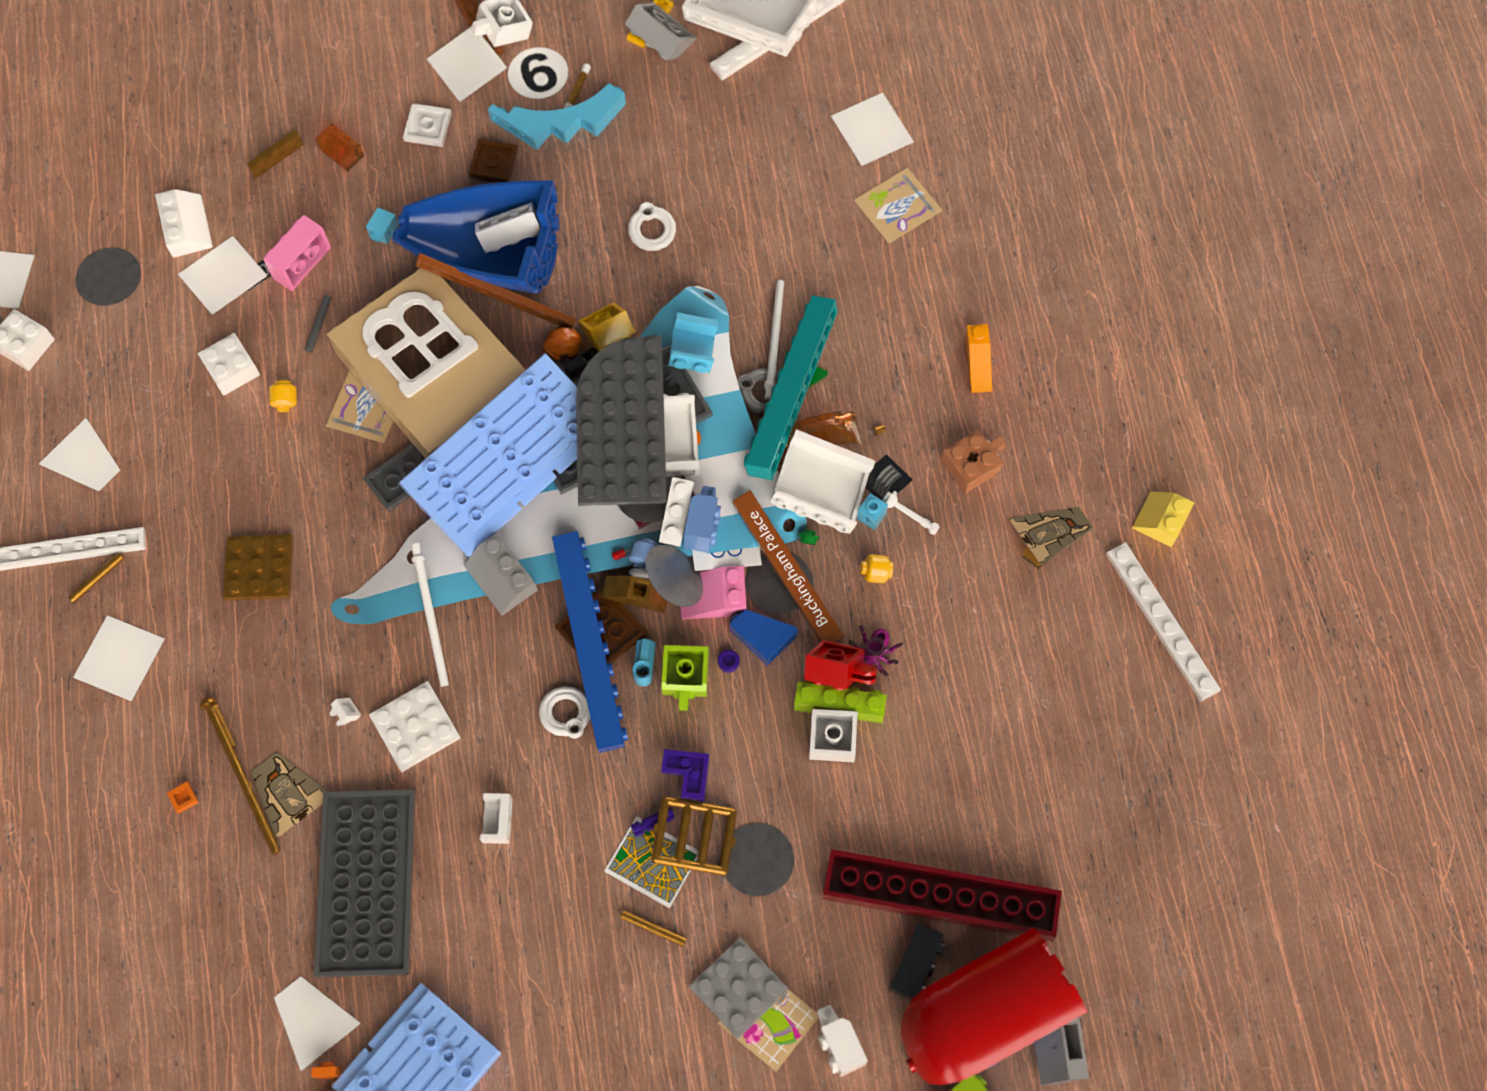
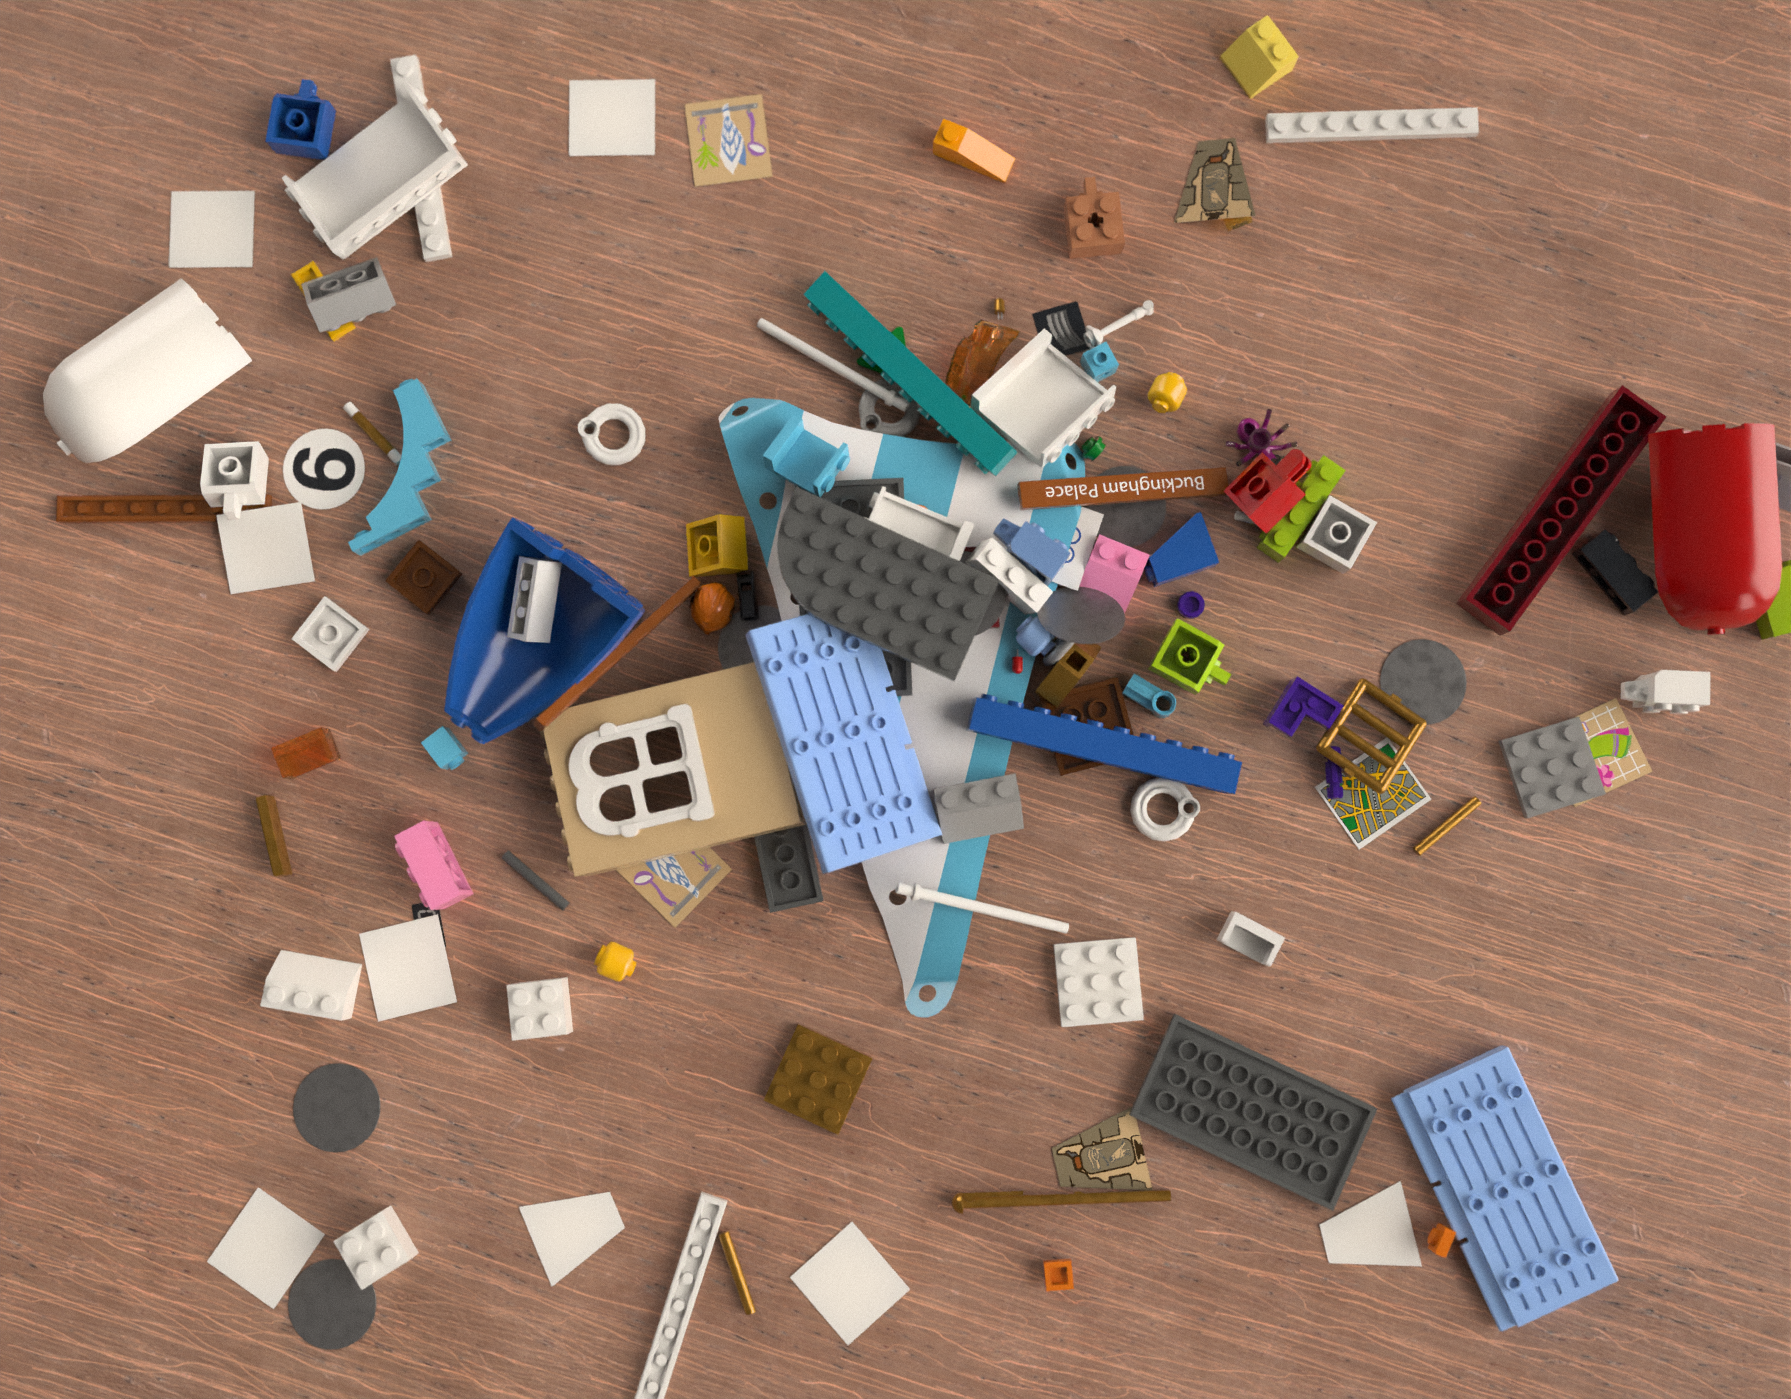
camera: 60 degrees left, 15 degrees up
(345, 710) = (1045, 1051): white tile -> none

